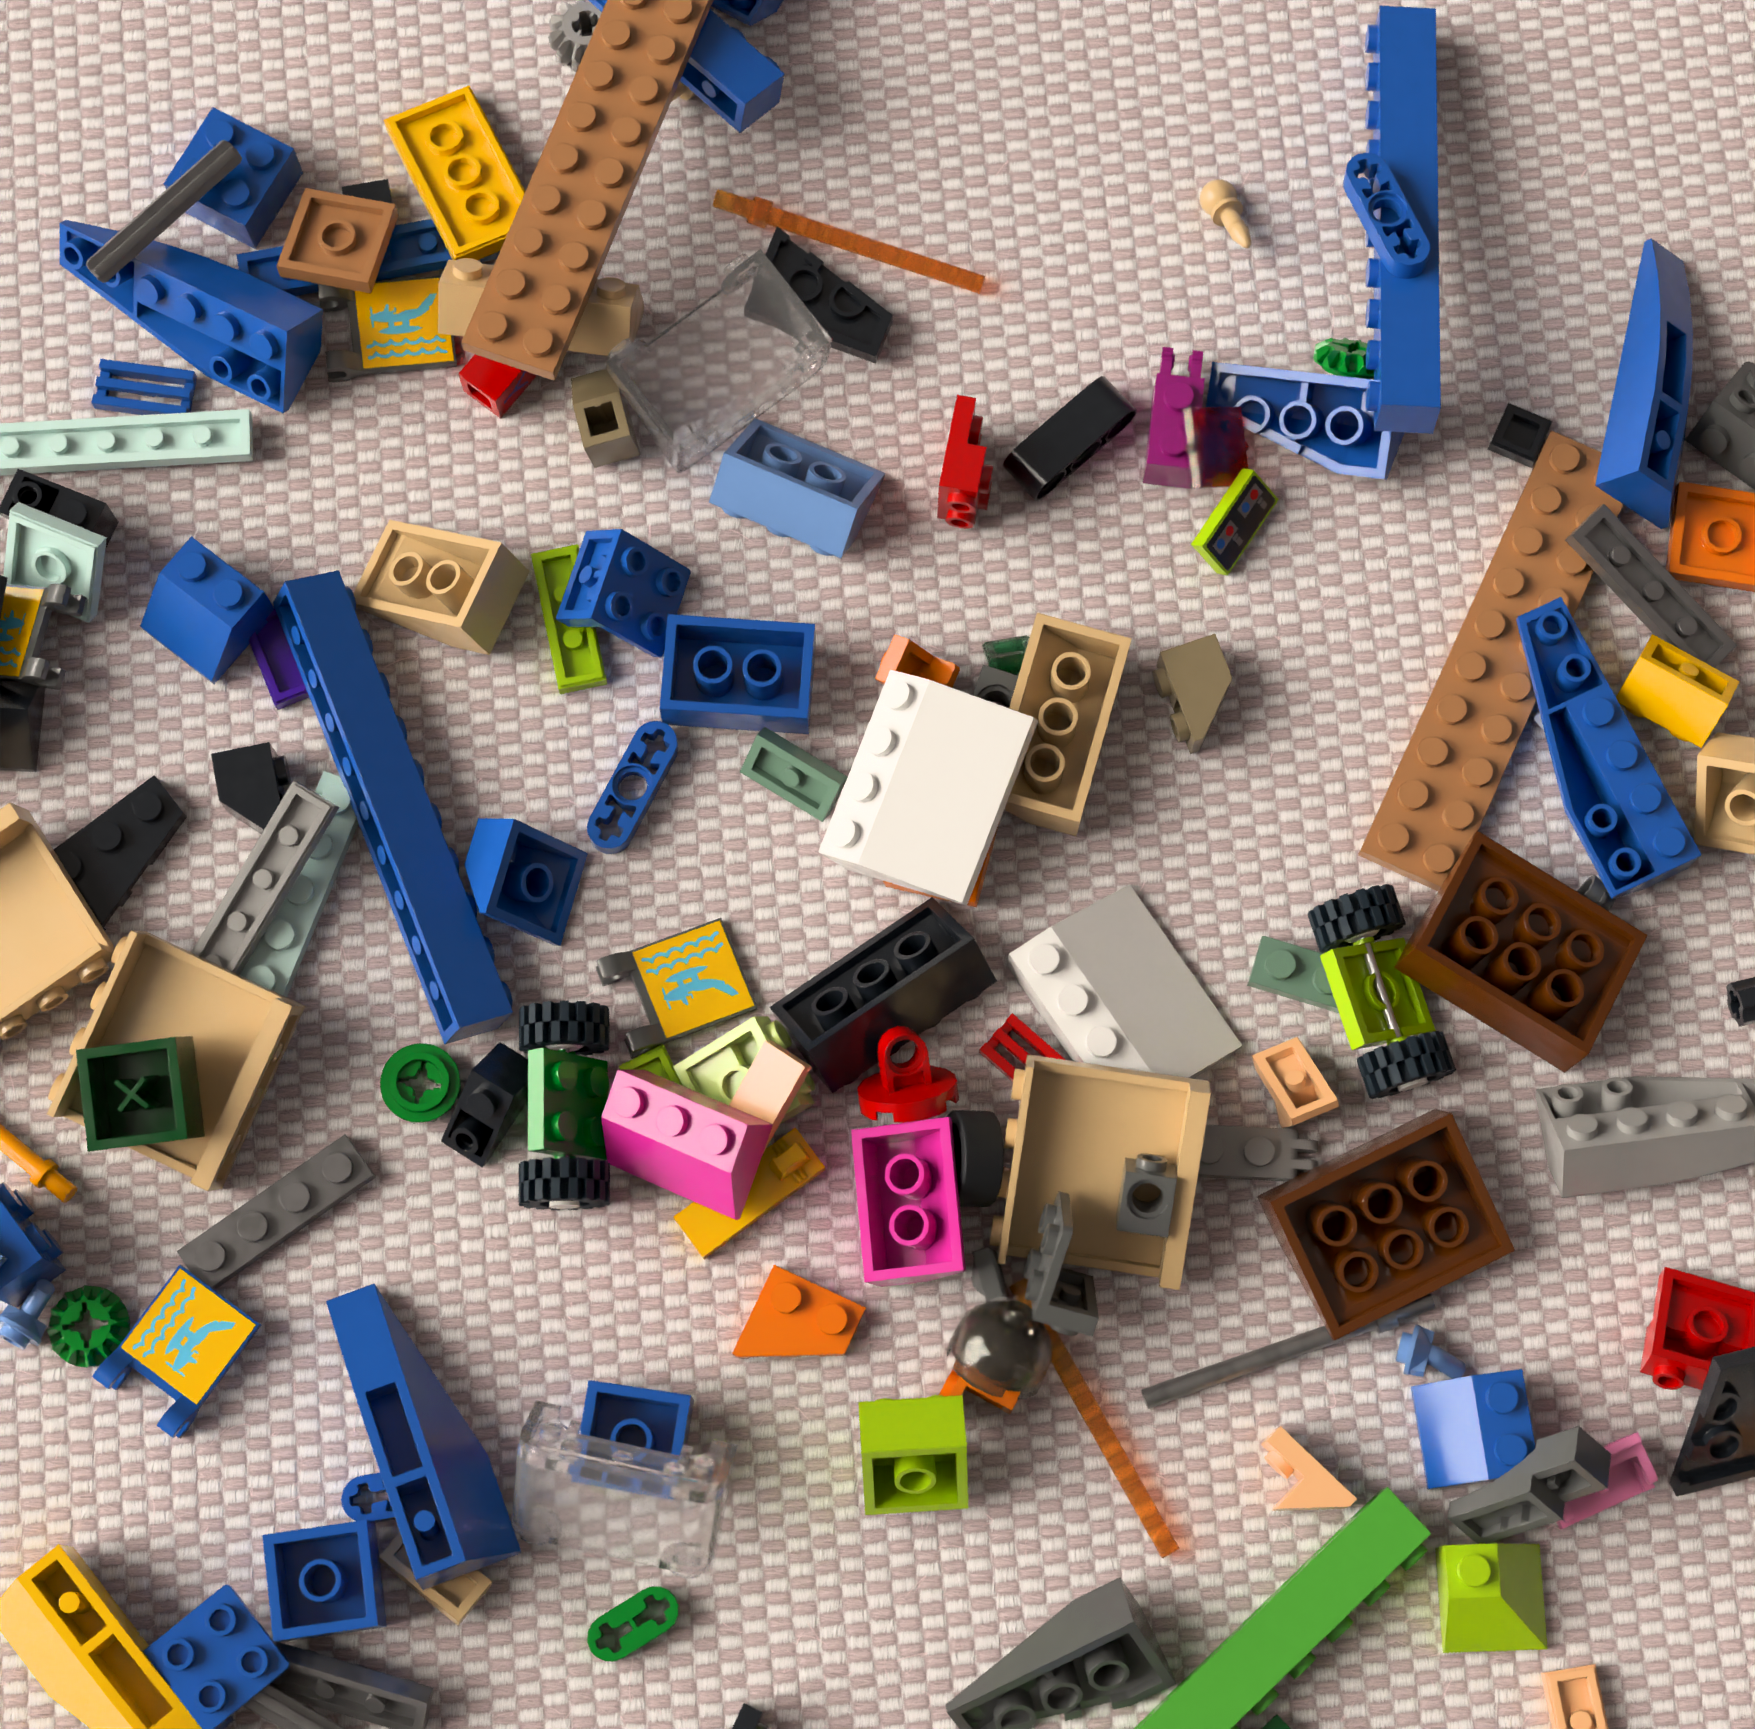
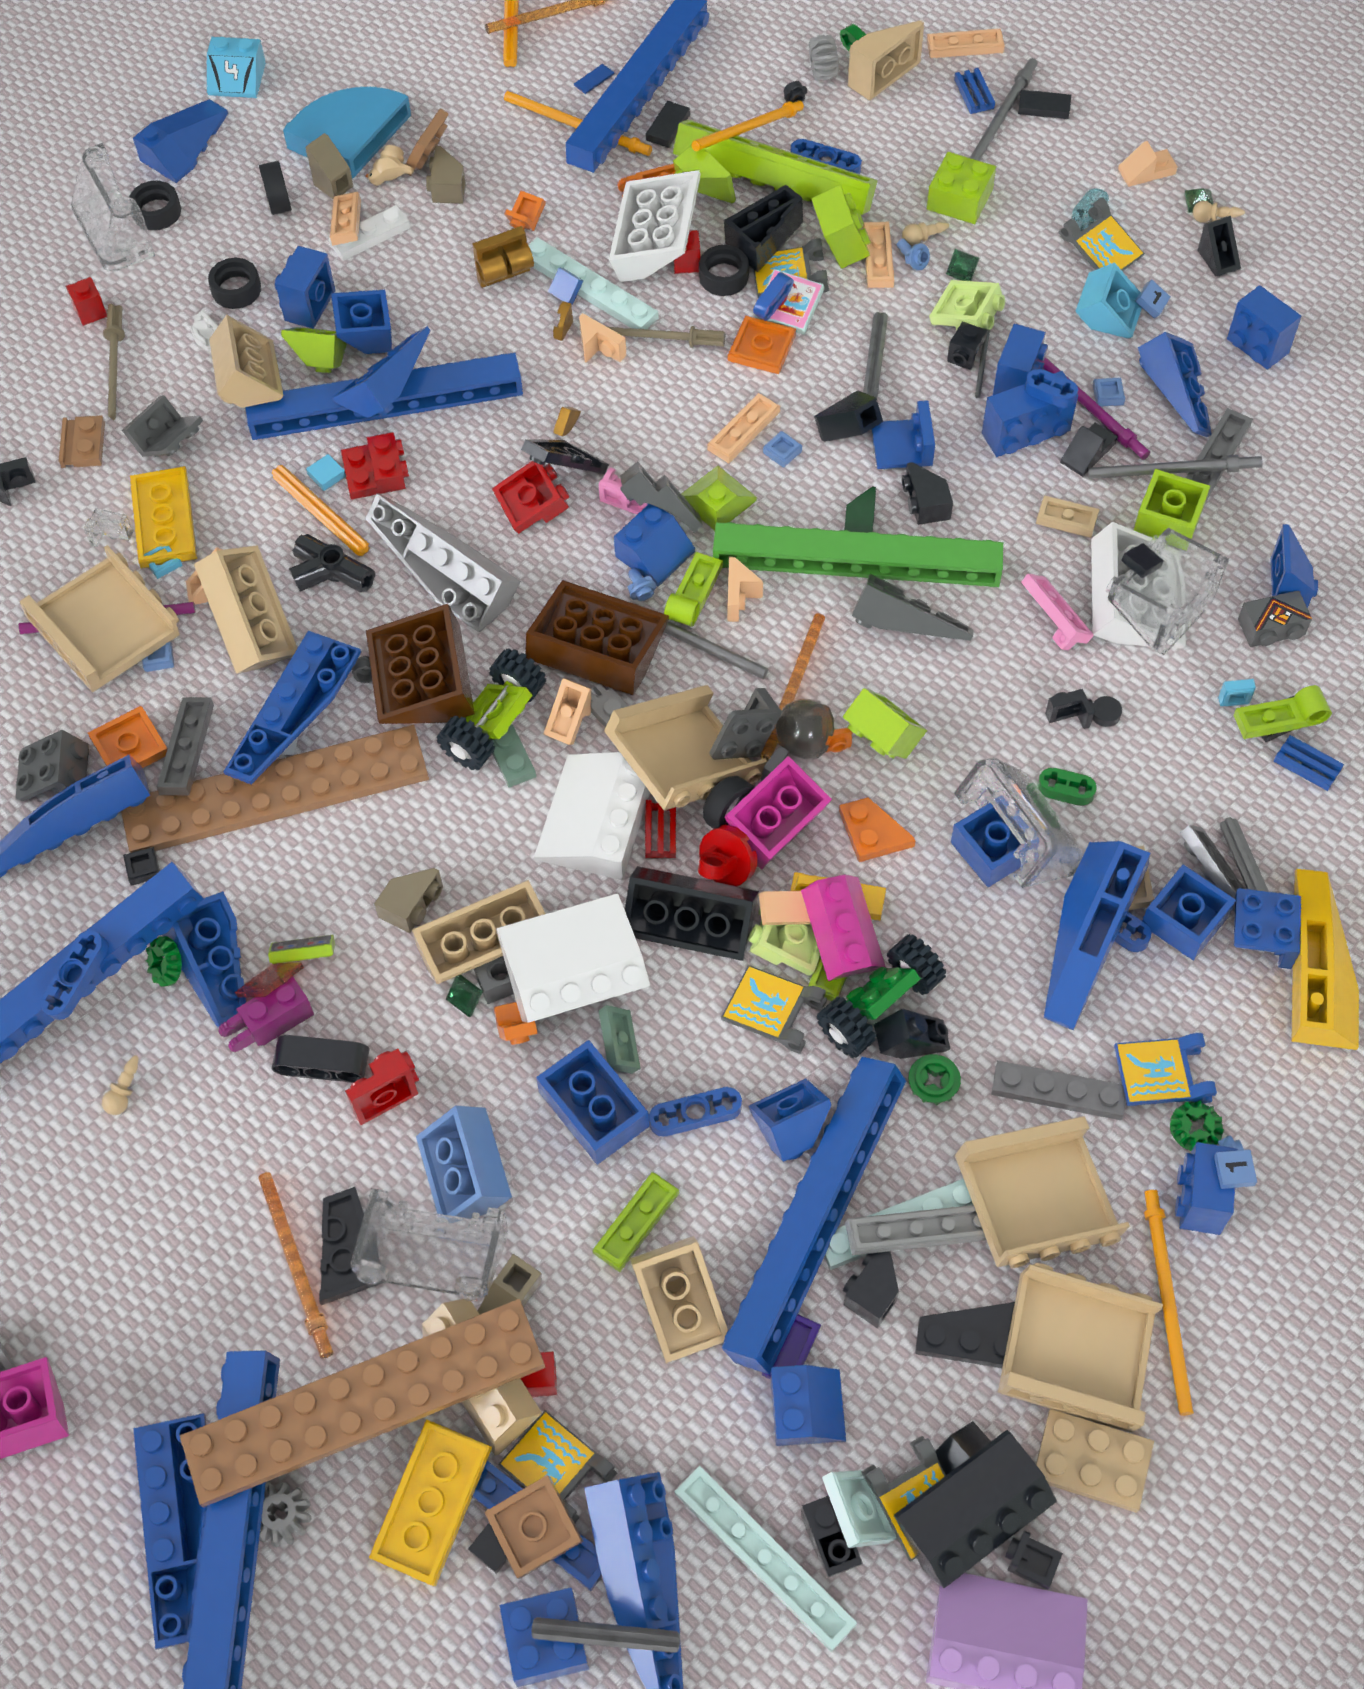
camera: 130 degrees left, 15 degrees down
(140, 1093) = (1075, 1182): dark green brick -> none
(143, 372) = (697, 1544): blue tile -> none
(624, 589) = (600, 1200): blue bracket -> none
(1151, 1216) = (680, 720): dark grey brick -> none
(1353, 1415) = (693, 590): none -> lime plate
(1676, 691) = (229, 700): yellow brick -> none

